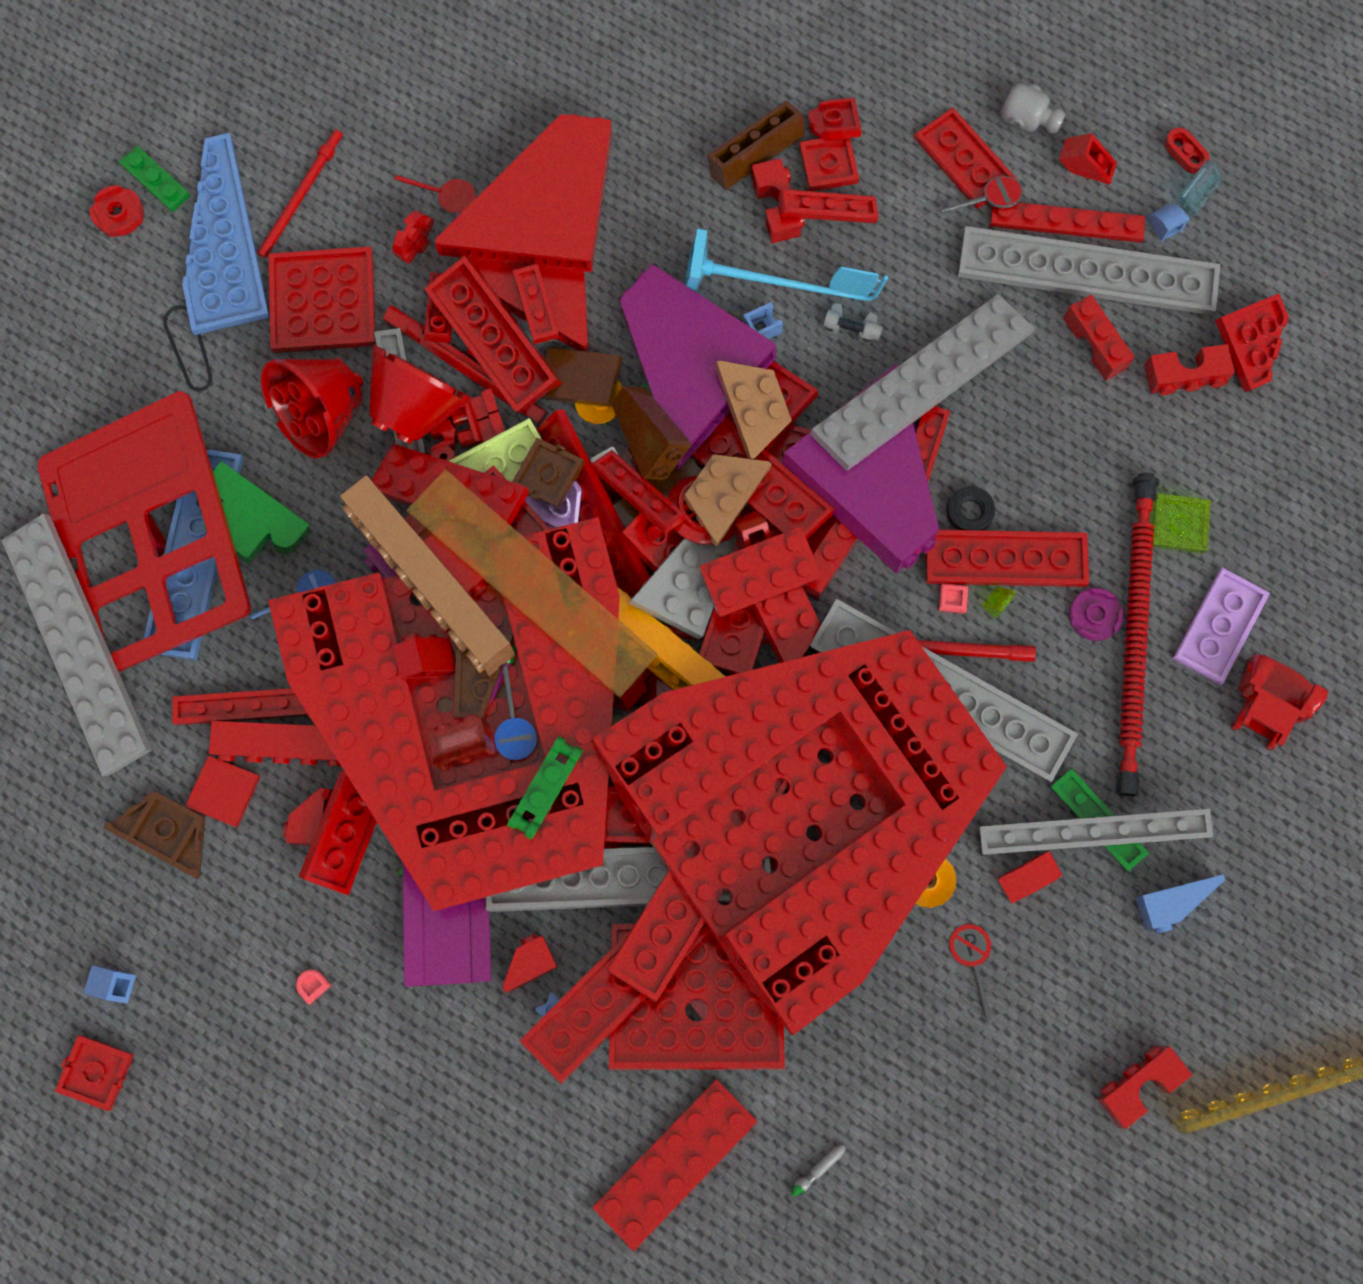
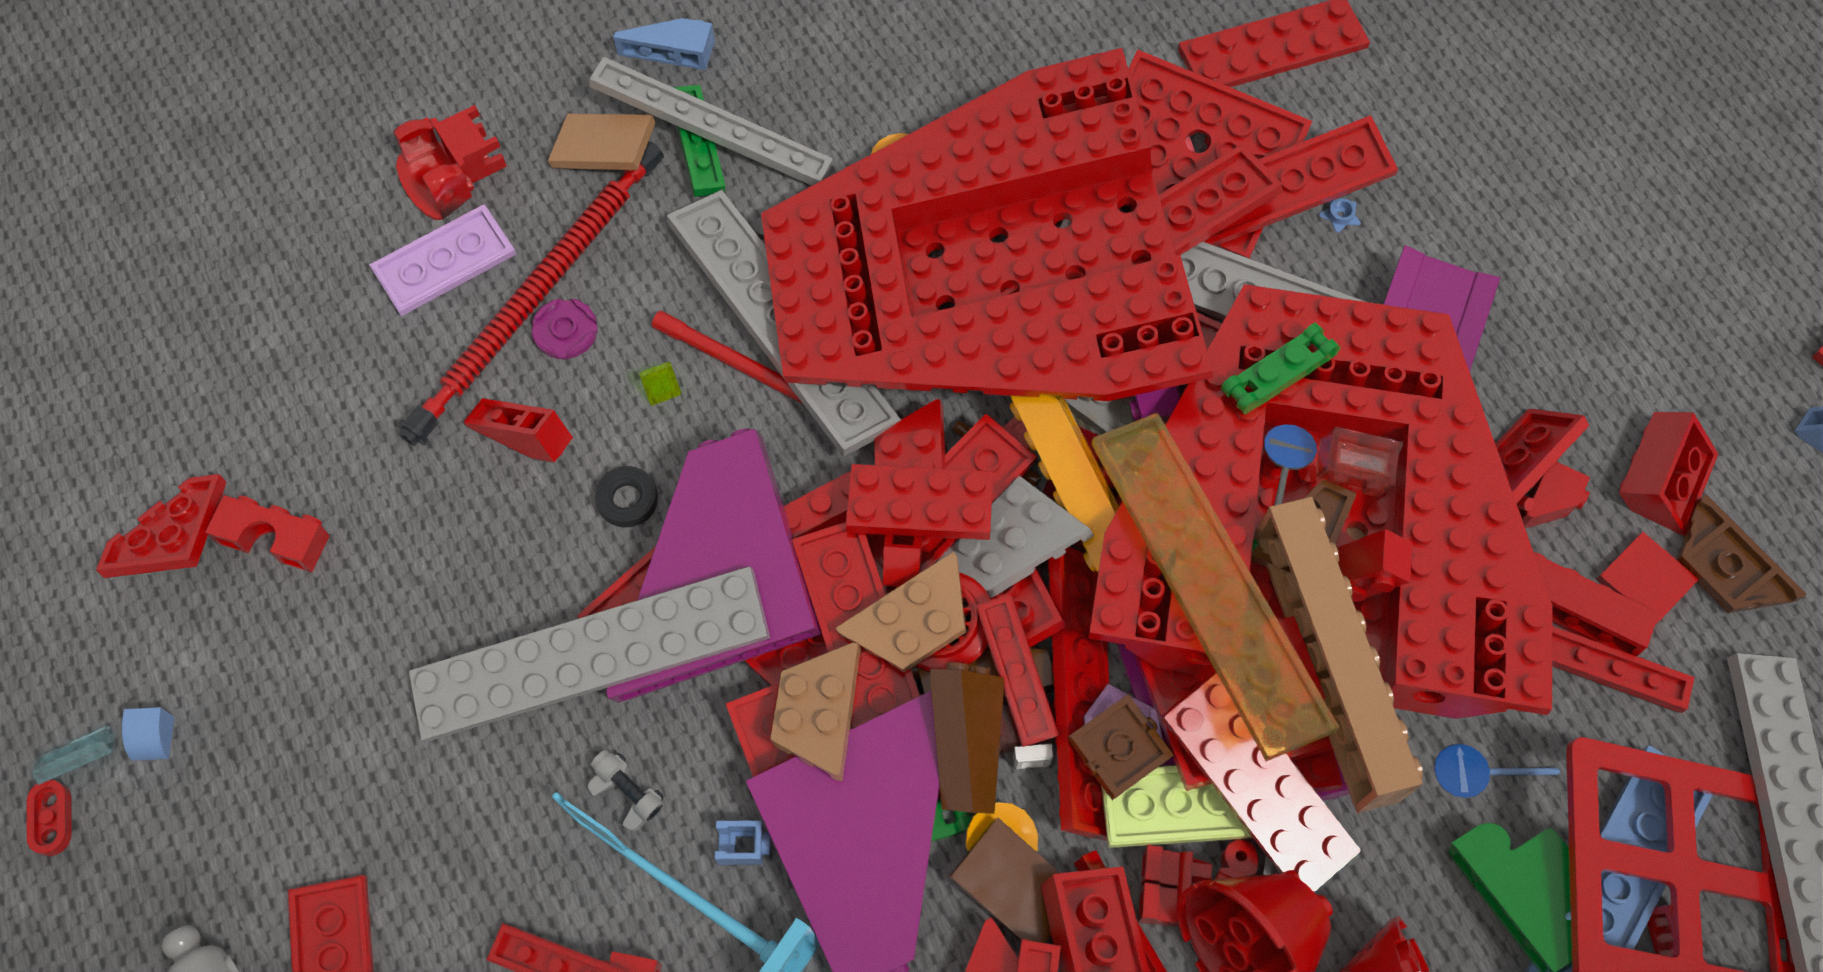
camera: 155 degrees left, 10 degrees down
(227, 886) = (1669, 470): none -> red slope
(311, 985) = (1595, 340): coral tile -> none
(529, 962) = (1351, 257): red slope -> none
(953, 598) = (706, 413): coral tile -> none
(971, 947) = (892, 95): piece -> none
(999, 192) = (323, 872): piece -> none
(1008, 558) = (617, 420): red plate -> none
(1030, 876) = (795, 119): red slope -> none
(1070, 221) = (268, 799): red plate -> none
(1075, 517) = (521, 427): none -> red slope
(1088, 158) = (181, 868): red slope -> none
(1089, 270) = (294, 718): light grey plate -> none
(1109, 350) = (339, 637): red arch -> none
(1169, 777) = (602, 141): none -> medium nougat tile
(1181, 523) = (406, 373): clear neon green plate -> none

